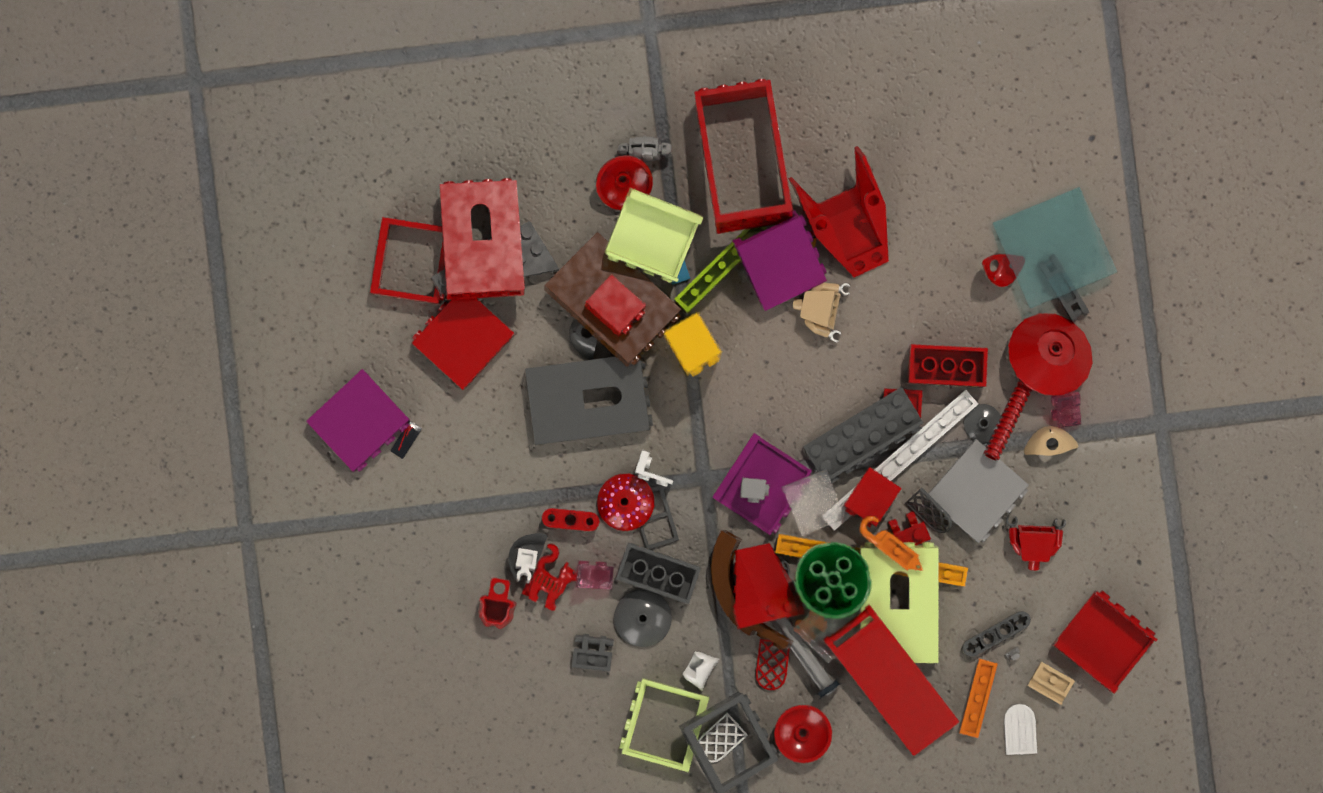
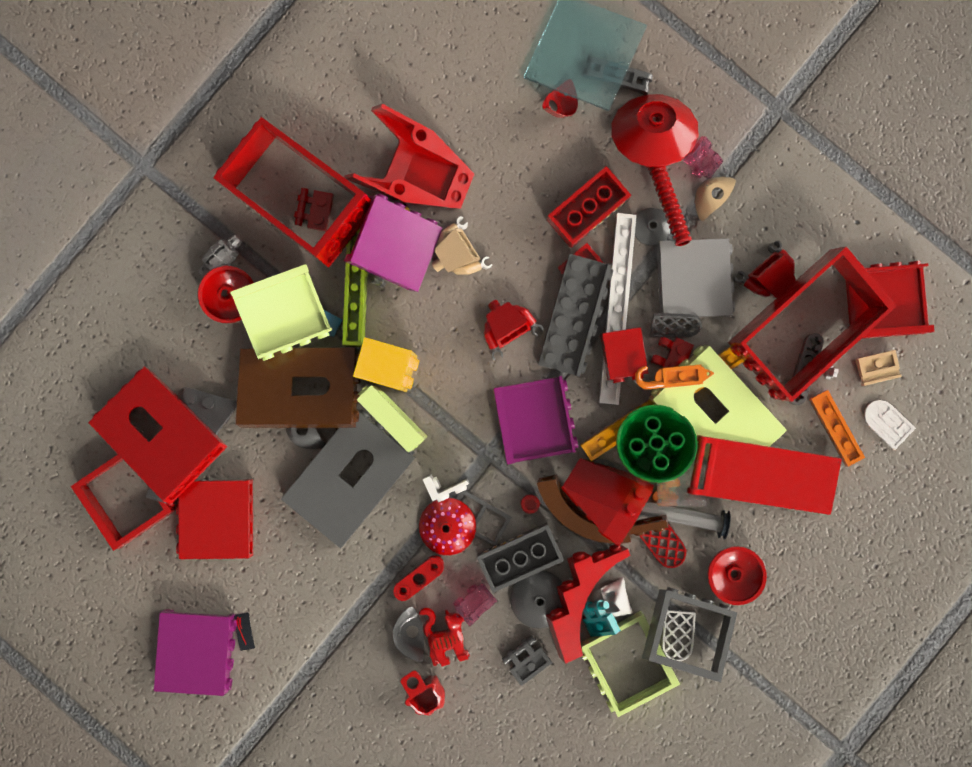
camera: 45 degrees left, 0 degrees up
(526, 562) = (414, 641): white plate -> none
(615, 306) = (301, 390): red brick -> none
(662, 385) = (391, 417): none -> yellowish green window
(674, 676) = (600, 623): none -> teal plate
(696, 628) = (573, 594): none -> arch
(701, 542) = (530, 503): none -> red tile
(749, 181) = (319, 211): none -> red plate
(754, 489) = (533, 430): light grey brick -> none
(807, 395) = (506, 324): none -> red torso
(813, 498) = (581, 397): clear container -> none
(1090, 635) = (863, 284): none -> red door

